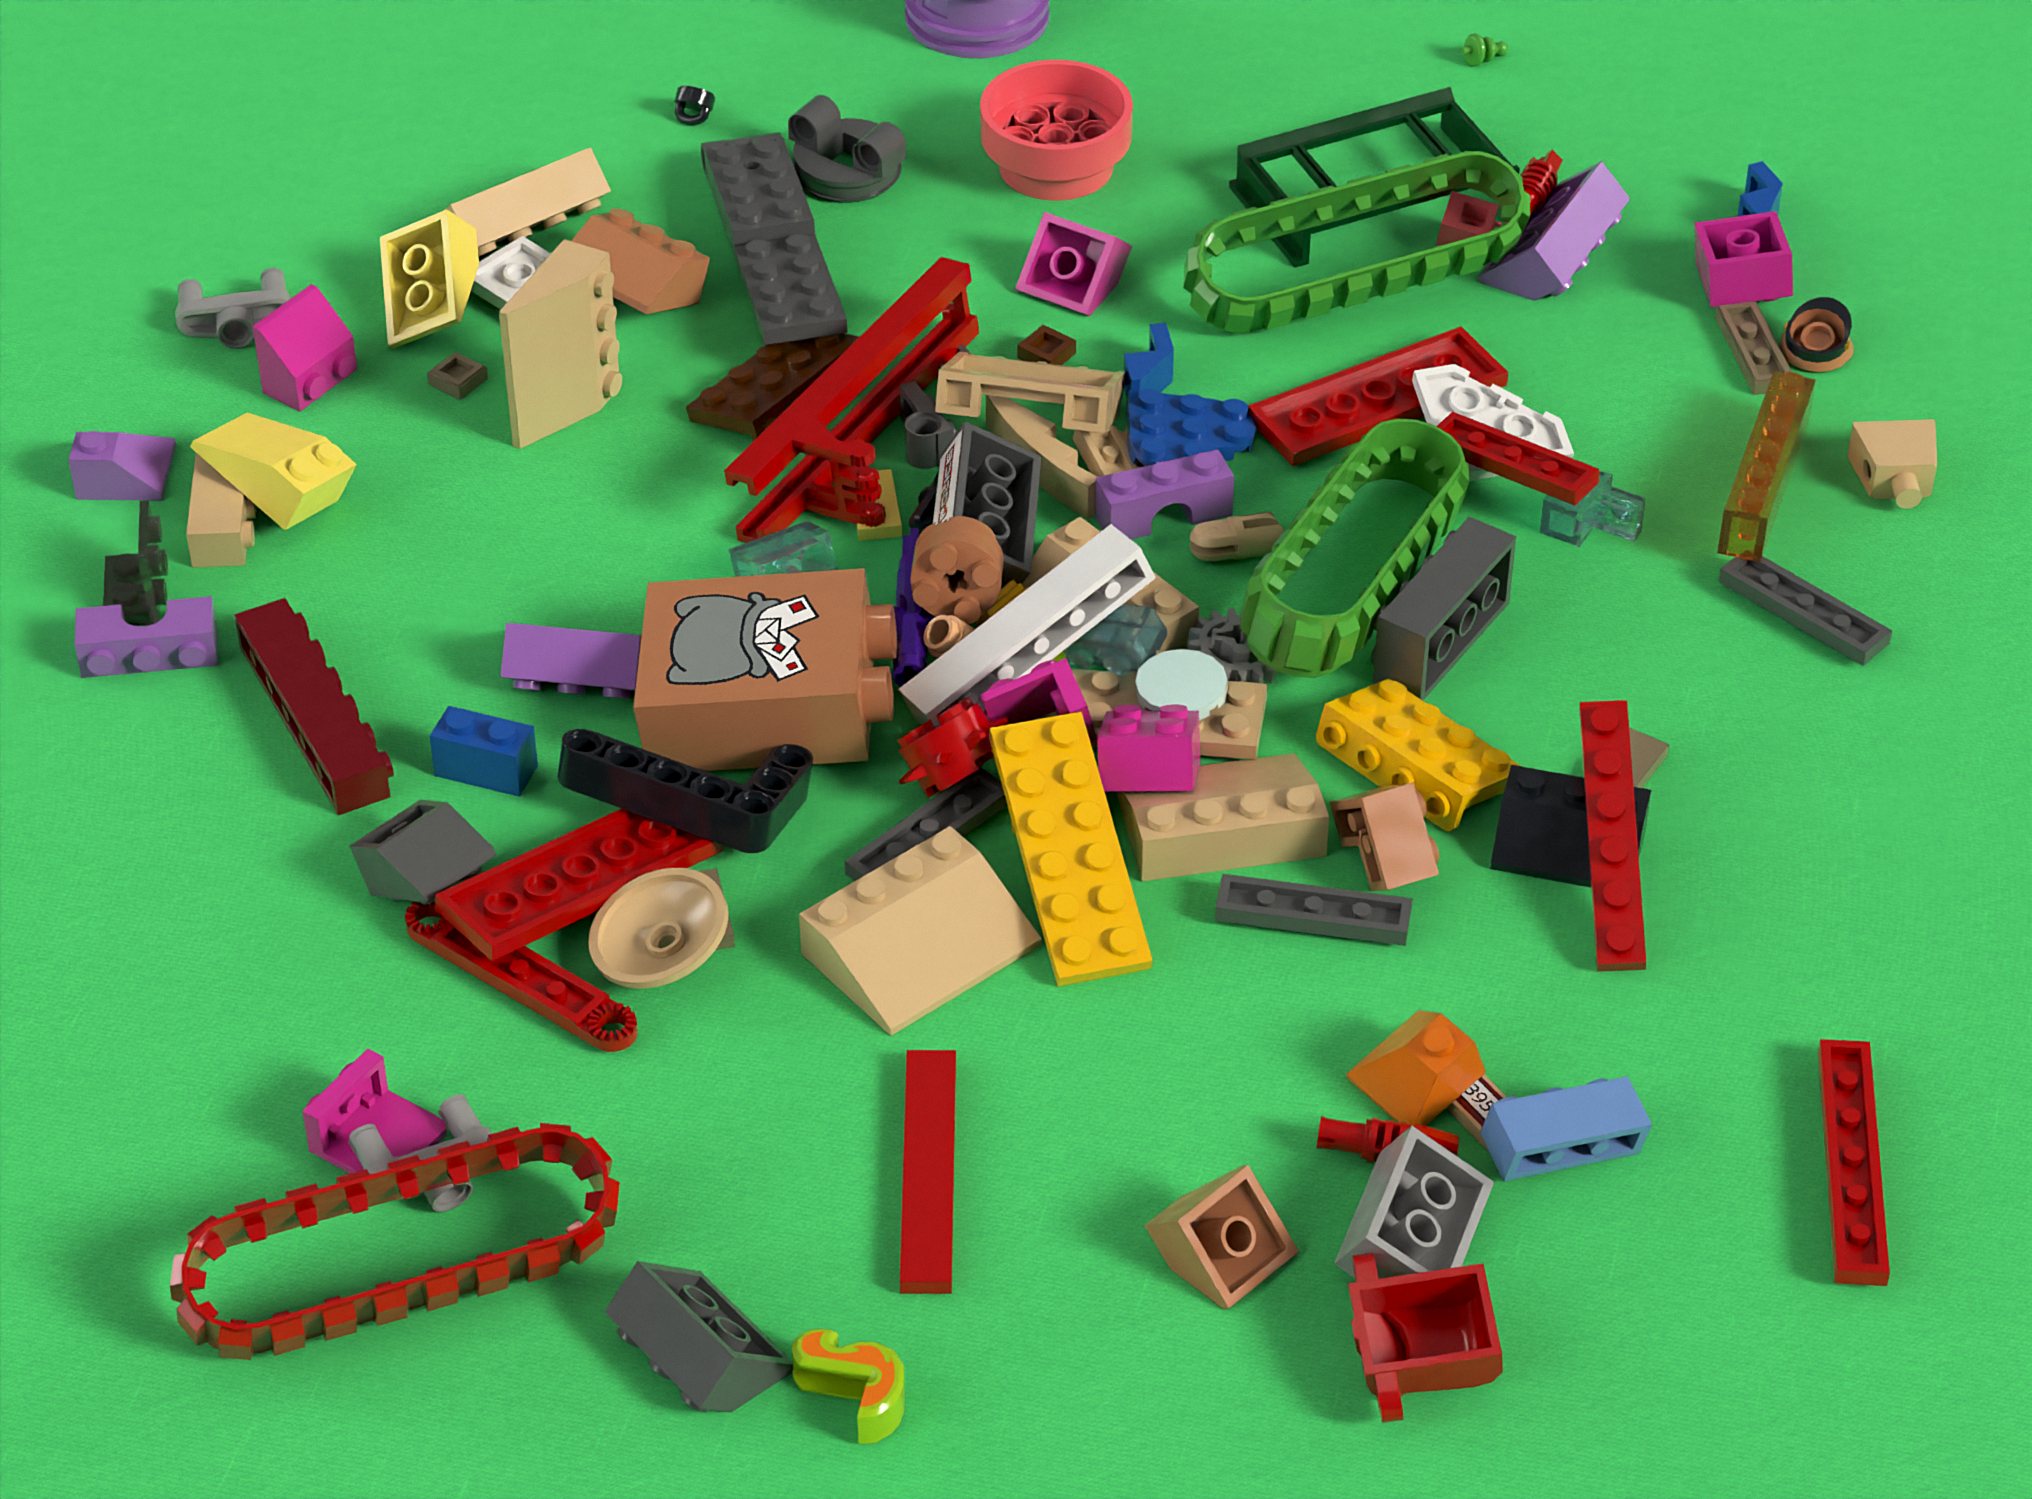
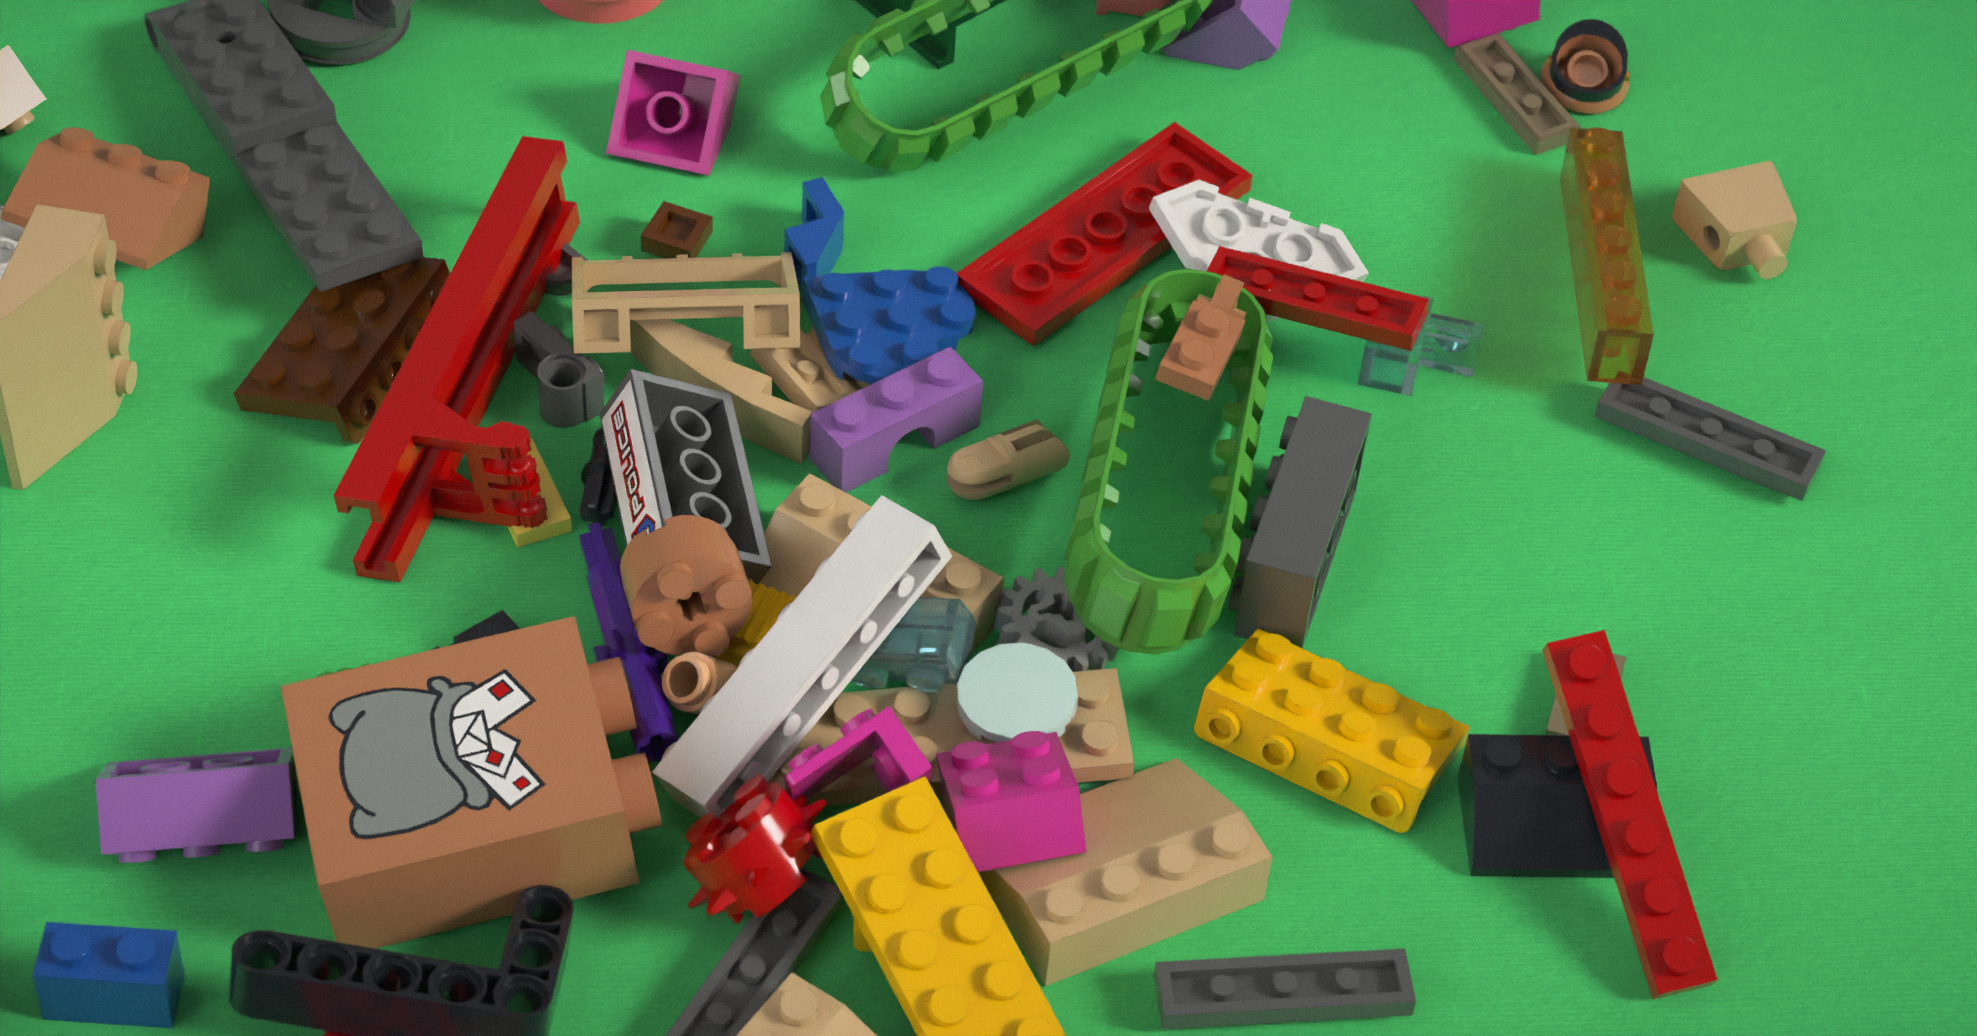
camera: 20 degrees left, 5 degrees up
(790, 550) = (437, 601): clear light blue brick -> none
(1389, 833) = (1350, 858): nougat brick -> none
(1403, 466) = (1204, 341): none -> nougat hinge

